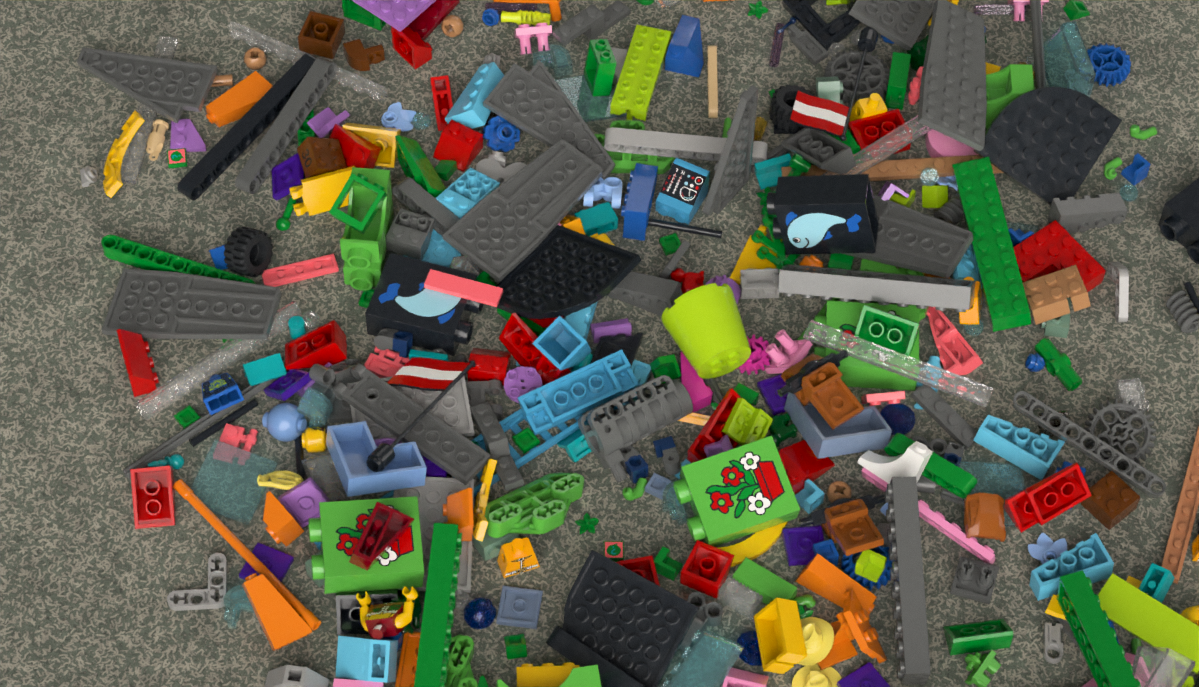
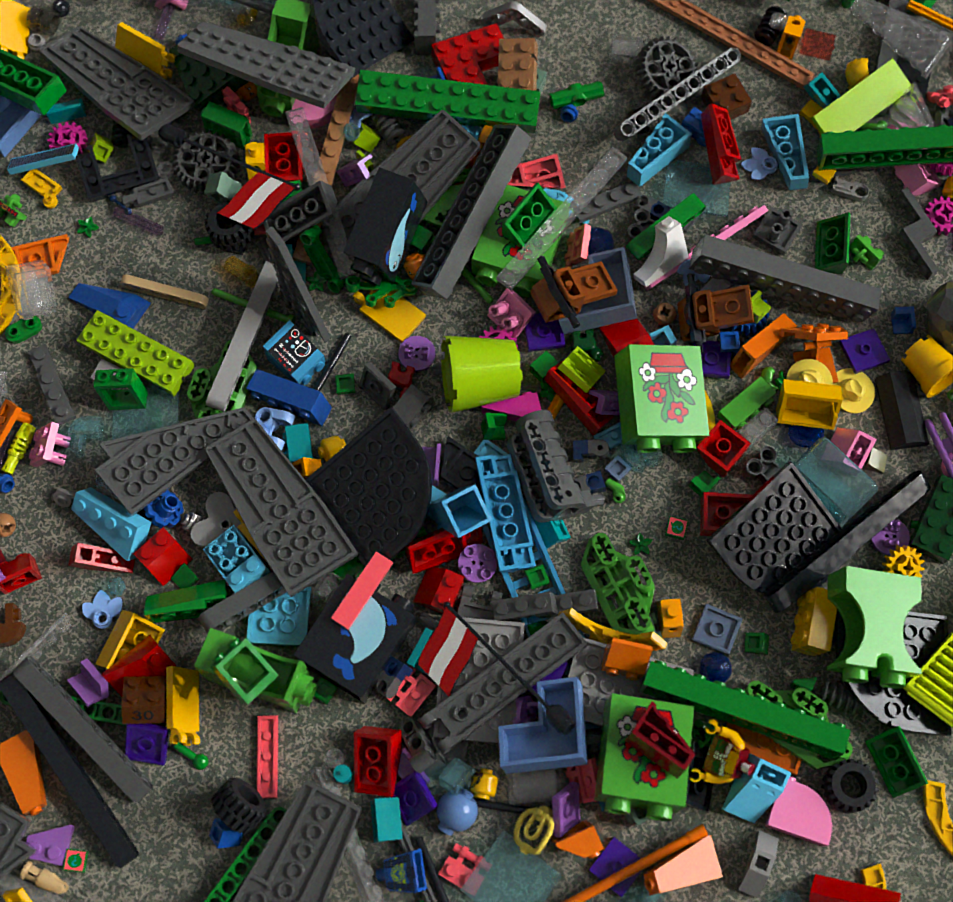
camera: 75 degrees left, 15 degrees up
(410, 234) = (267, 628): dark grey slope -> none
(759, 283) = (422, 315): light grey hinge -> none
(984, 516) = (728, 201): dark orange slope -> none

